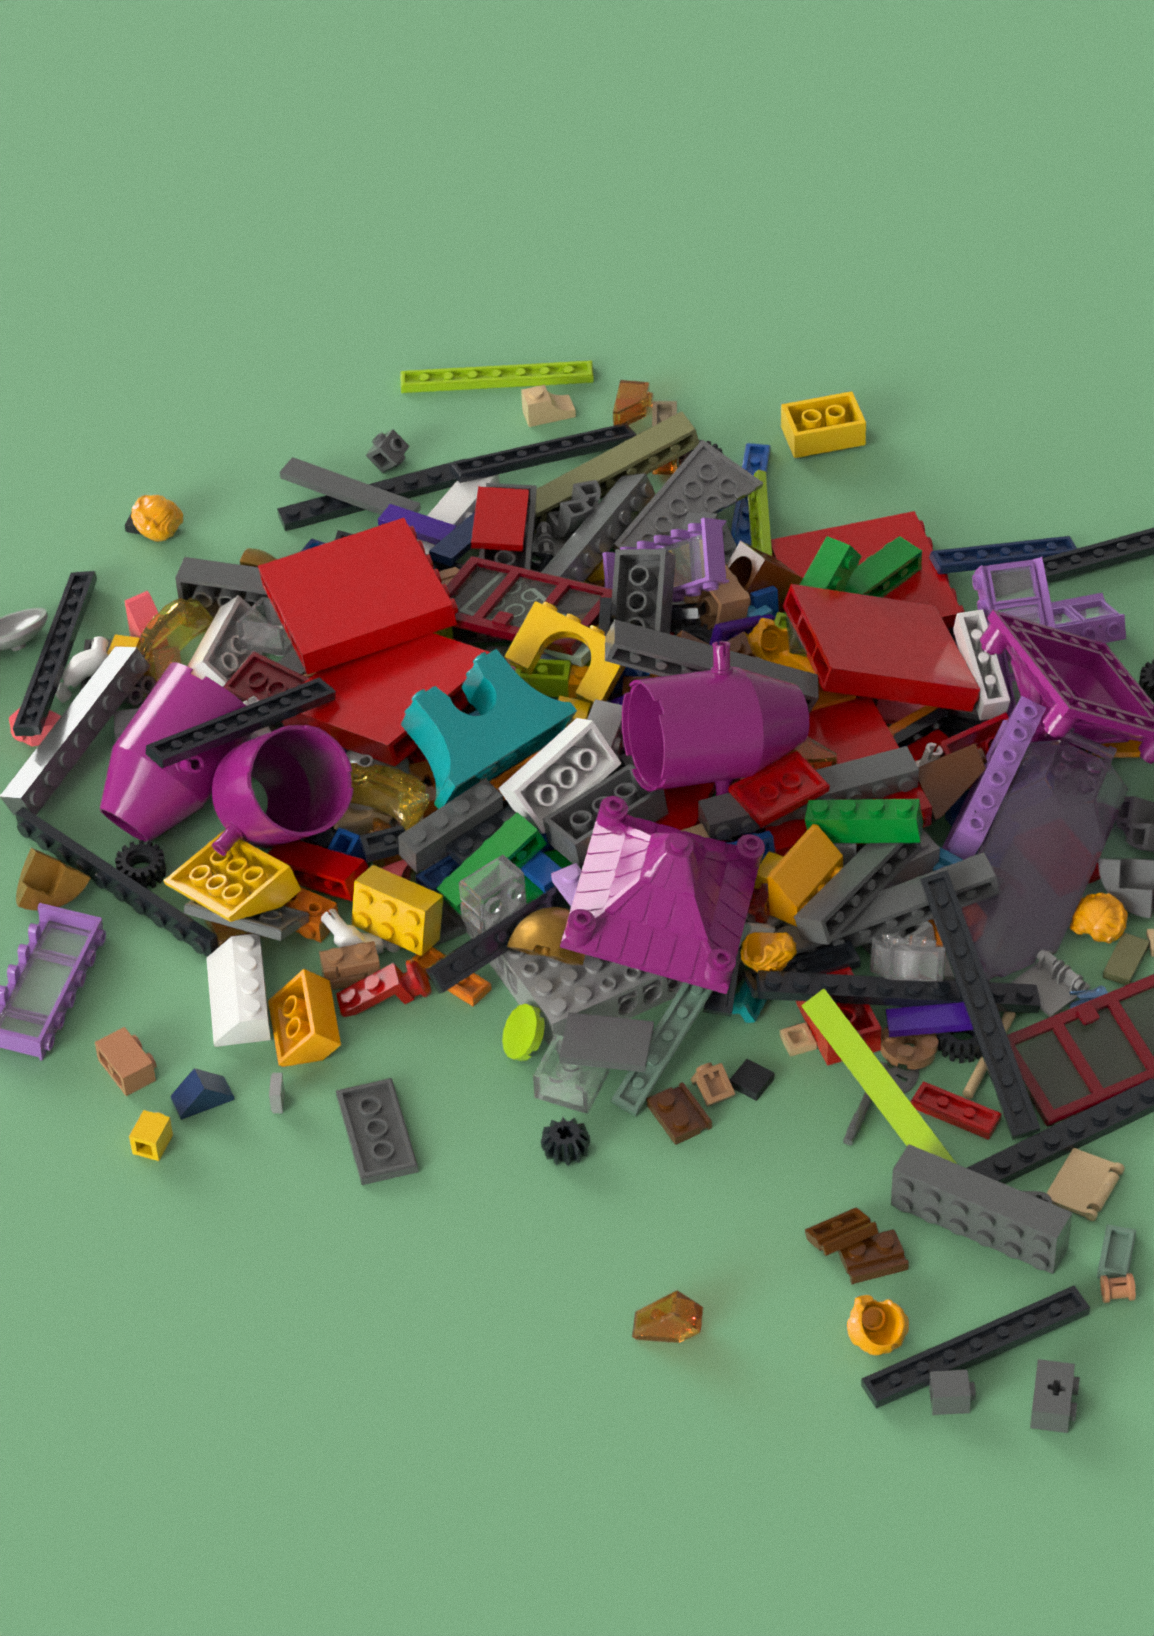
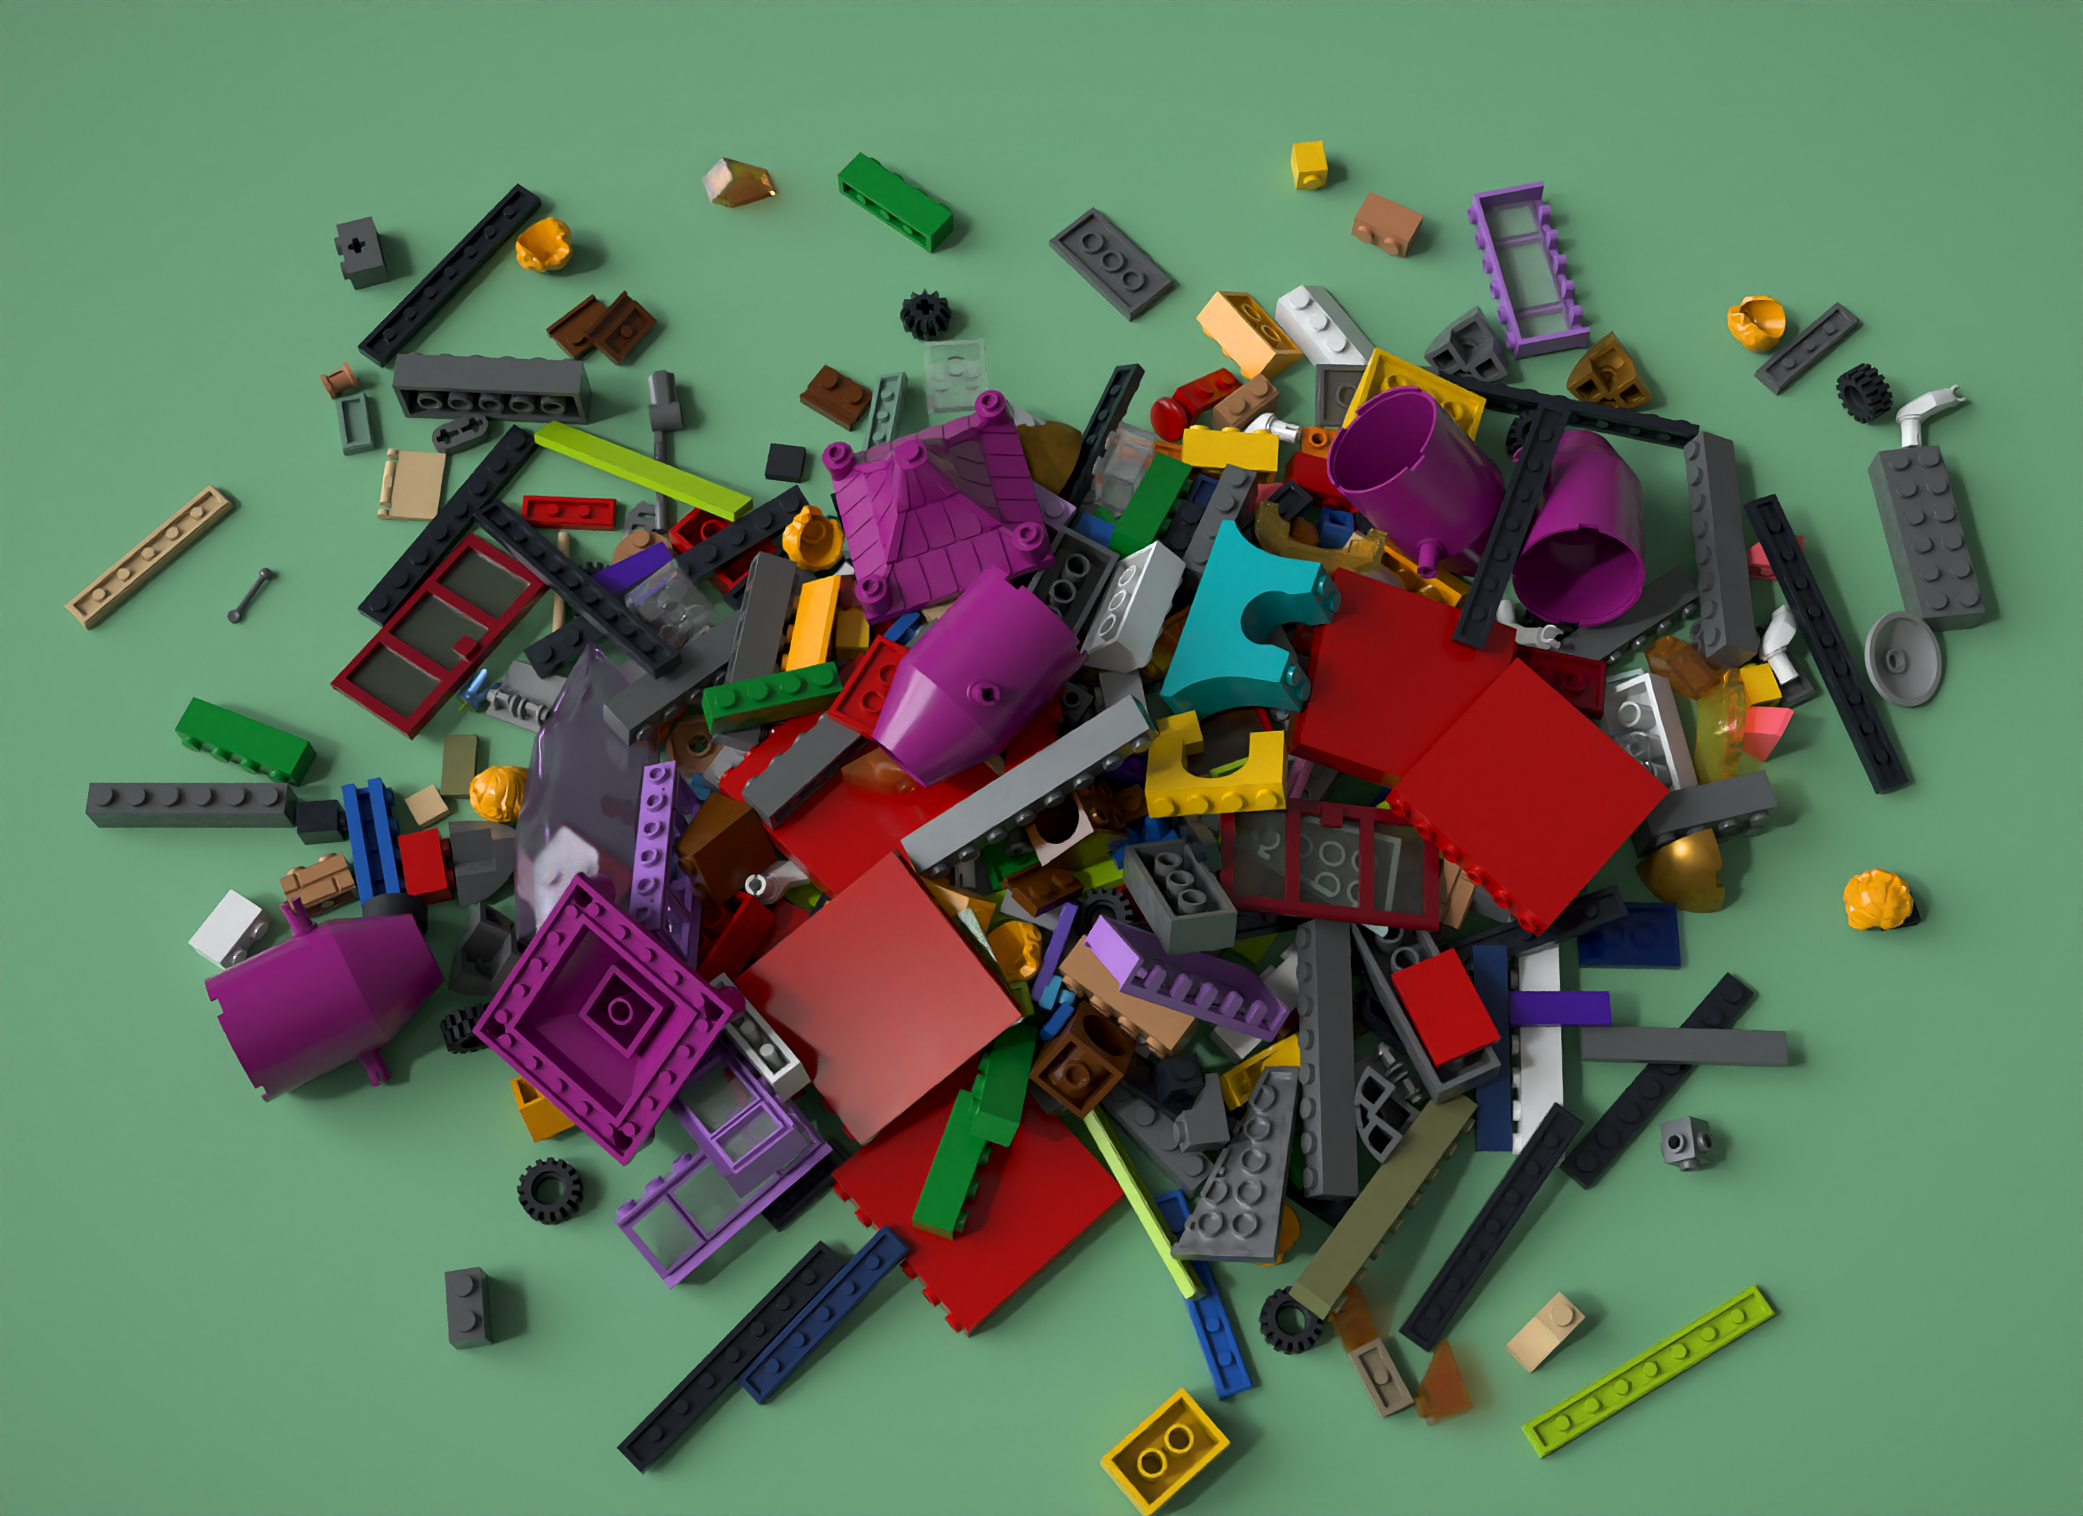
camera: 150 degrees right, 20 degrees up
(139, 942) = (1469, 349): none -> dark grey brick
(200, 1093) = (1293, 230): dark blue slope -> none
(277, 1092) = (1224, 252): light grey tile -> none
(523, 1032) = (1027, 397): lime tile -> none
(533, 1248) = (896, 202): none -> green brick
(606, 1042) = (929, 394): dark grey tile -> none
(713, 1083) = (817, 432): medium nougat bracket -> none
(833, 1153) = (664, 408): none -> dark grey piece
(951, 1392) = (454, 219): dark grey brick -> none

